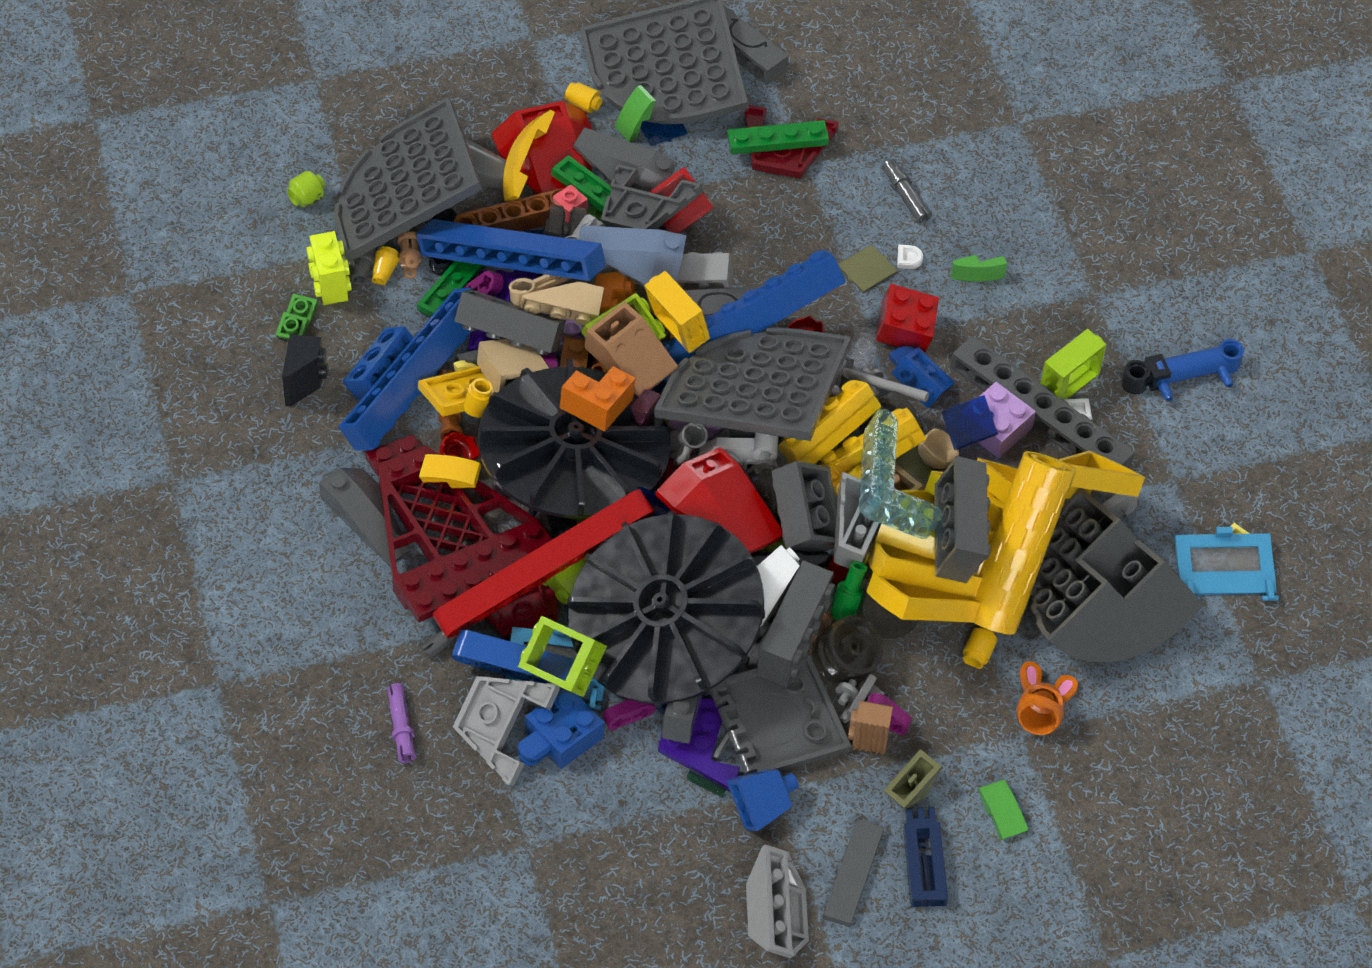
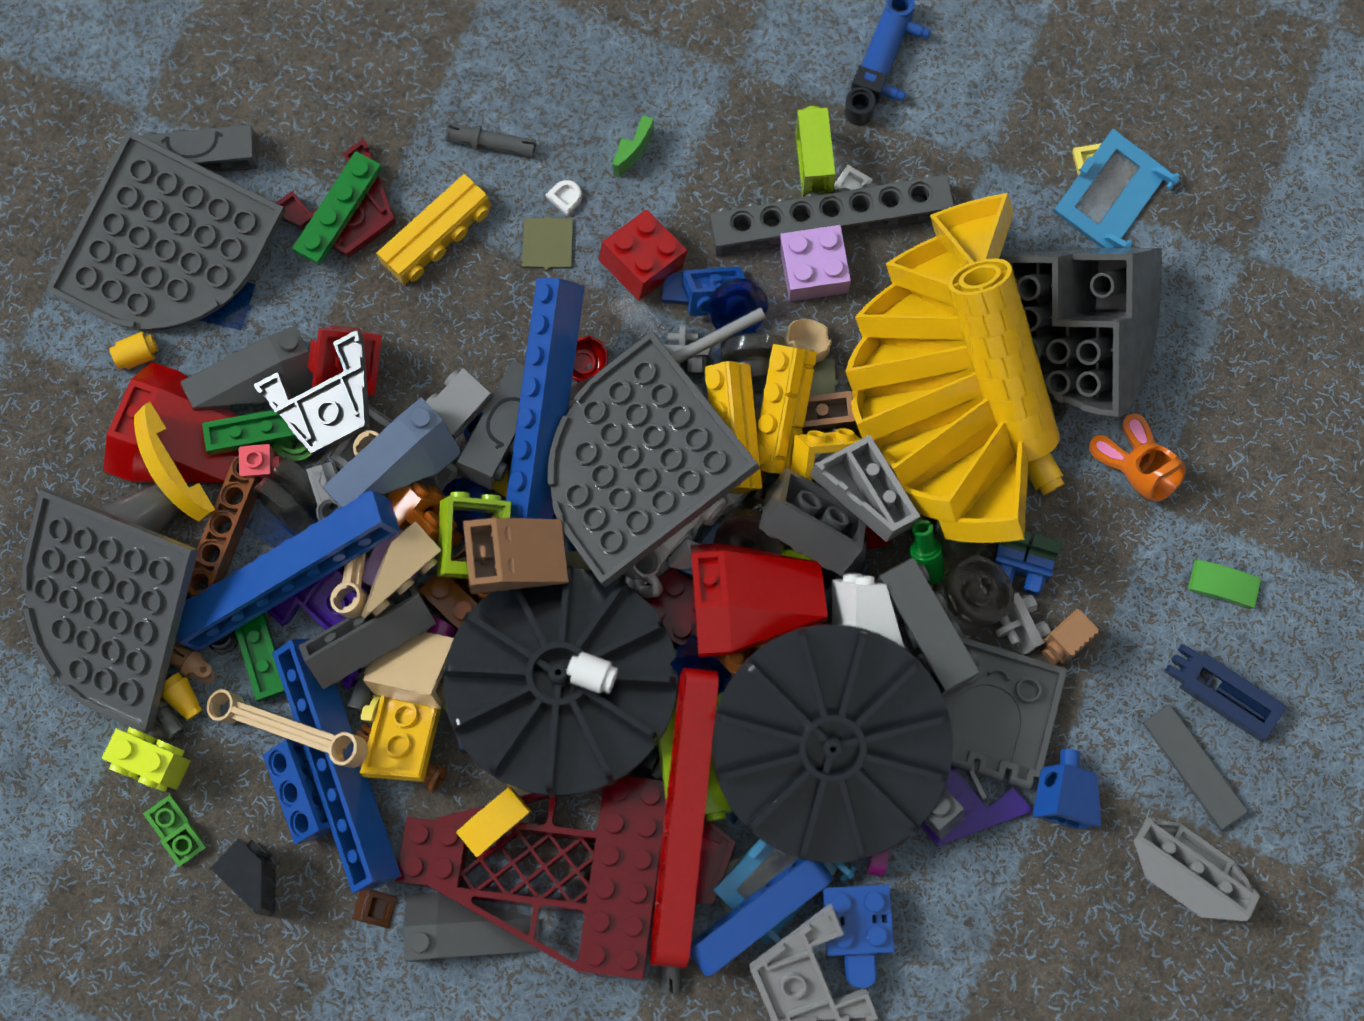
camera: 45 degrees left, 20 degrees up
(306, 189) = (23, 707): lime head -> none
(339, 456) = (375, 908): none -> reddish brown slope
(424, 350) = (287, 728): none -> tan piece
(459, 444) = (456, 794): red hair -> none
(478, 397) = (438, 735): yellow brick -> none
(487, 283) = (288, 621): magenta beam -> none
(583, 666) = (799, 857): lime window -> none
(591, 440) = (592, 672): none -> white brick
(598, 401) = (550, 633): orange brick -> none
(636, 109) = (200, 319): bright green slope -> none
(644, 405) = (582, 584): clear pink slope -> none
(677, 311) = (502, 474): yellow window -> none
(706, 784) = (1006, 829): clear green piece -> none
(814, 199) = (435, 230): none -> yellow brick
(877, 494) = (850, 436): clear light blue beam -> none
(900, 719) = (1060, 610): magenta beam -> none
(909, 673) = (1038, 561): none -> blue hips
(914, 780) = (1148, 644): olive slope -> none
(930, 381) = (734, 300): none -> clear blue tile
(964, 528) = (957, 399): dark grey brick -> none
(969, 422) = (809, 293): clear blue piece -> none

